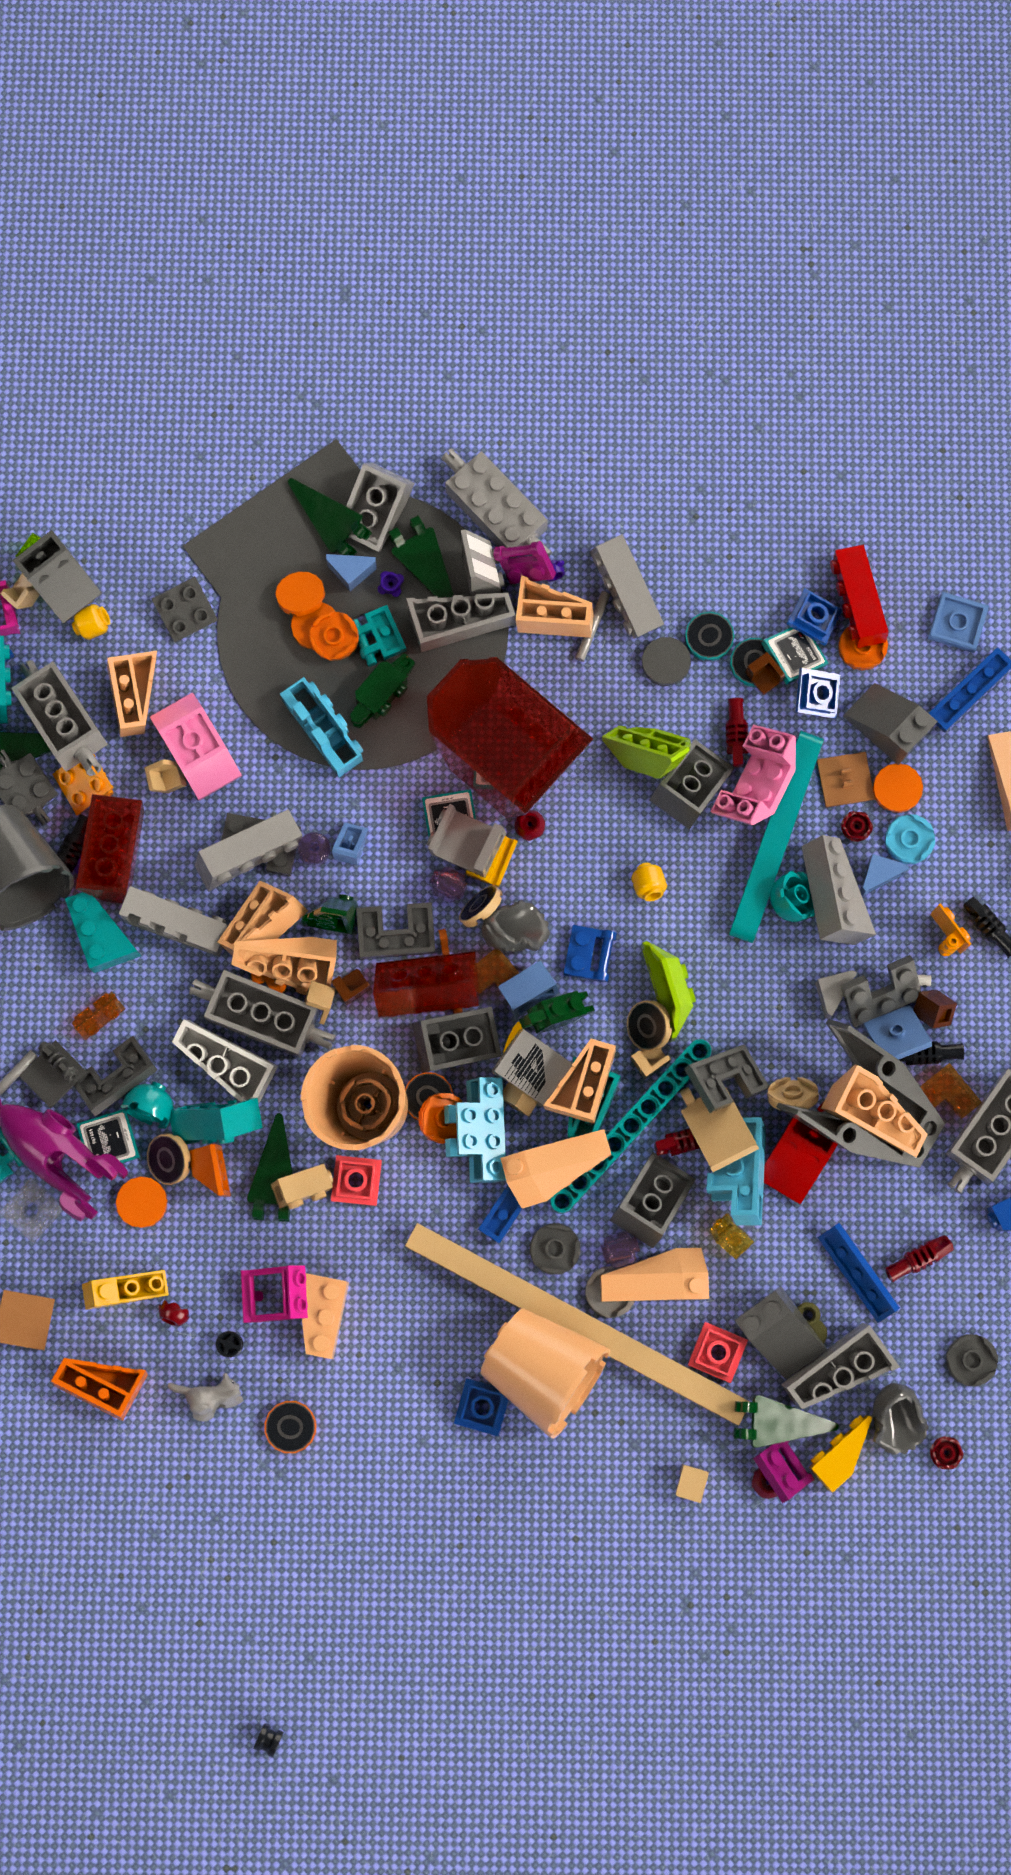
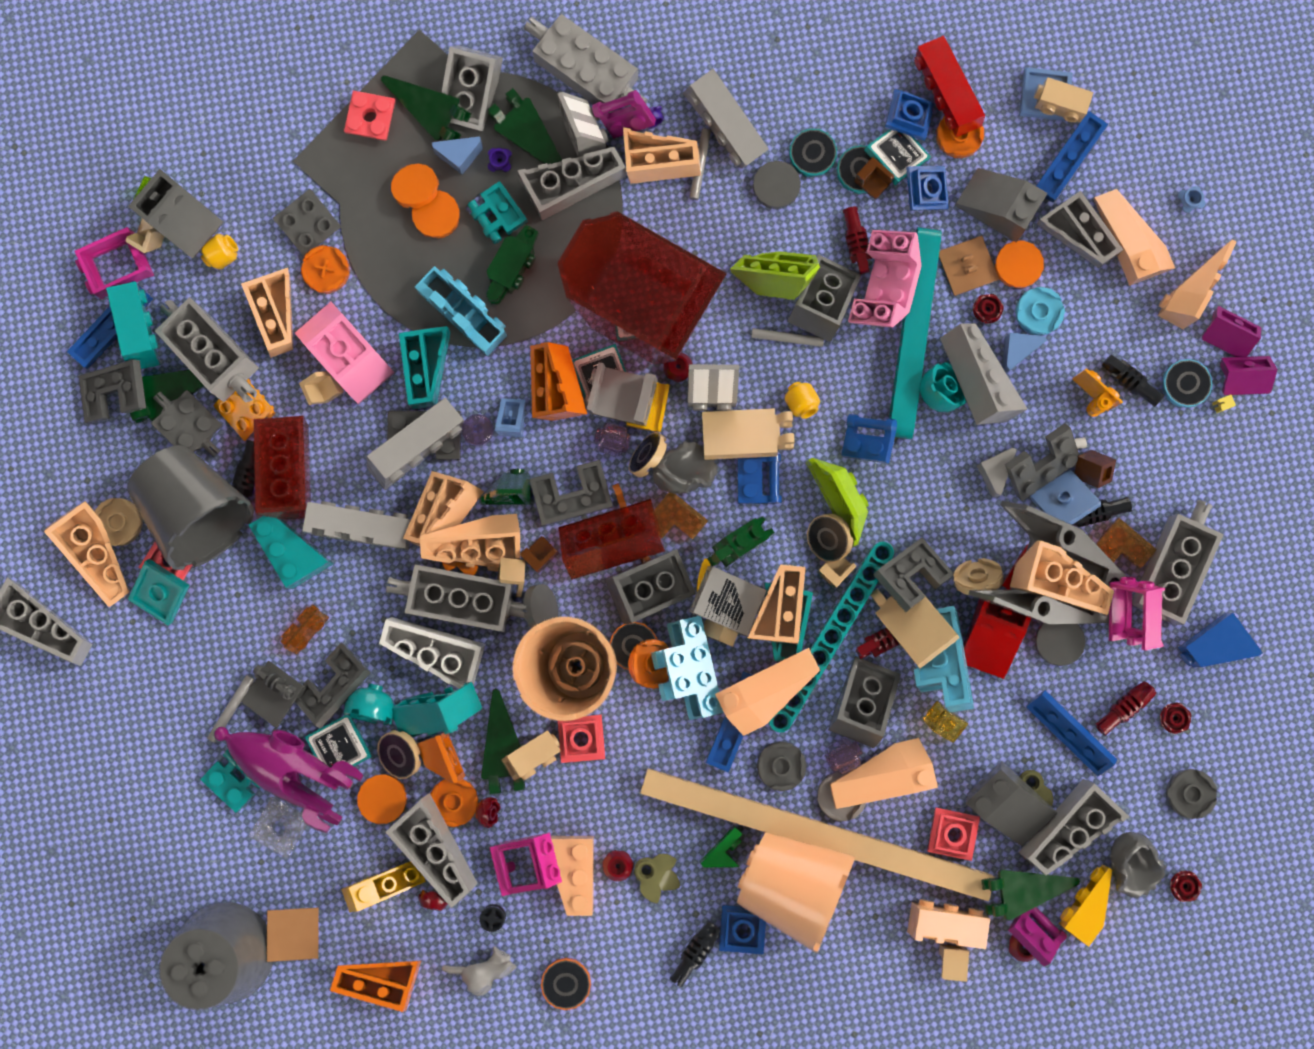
camera: 10 degrees left, 5 degrees up
(183, 1261) = (433, 851): none -> light grey wedge
(193, 659) = (325, 269): none -> orange tile
(213, 1219) = (455, 801): none -> orange tile
(246, 1235) = (487, 812): none -> dark red plate
(268, 502) = (363, 103): none -> coral piece
(273, 772) = (423, 364): none -> teal wedge
(334, 635) = (455, 220): orange tile -> none
(341, 1032) = (540, 604): none -> dark grey tile
(367, 1308) = (621, 858): none -> dark red plate
(401, 817) = (554, 383): none -> orange wedge
(408, 1338) = (659, 878): none -> olive plate
(429, 1420) = (696, 952): none -> black hinge
(471, 1326) = (718, 856): none -> green slope
(528, 989) = (708, 524): medium blue panel -> none
(559, 850) = (712, 386): none -> slope
(584, 904) = (745, 433): none -> tan tile
(646, 816) = (787, 337): none -> light grey bar
(694, 1442) = (948, 924): none -> light nougat wedge
(705, 941) = (868, 446): none -> blue plate
(865, 1178) = (1060, 643): none -> dark grey tile
(933, 1156) = (1121, 613): none -> dark pink window
(966, 765) = (1081, 230): none -> light grey wedge
(972, 631) = (1063, 100): none -> tan brick
(974, 1272) = (1181, 723): none -> dark red plate

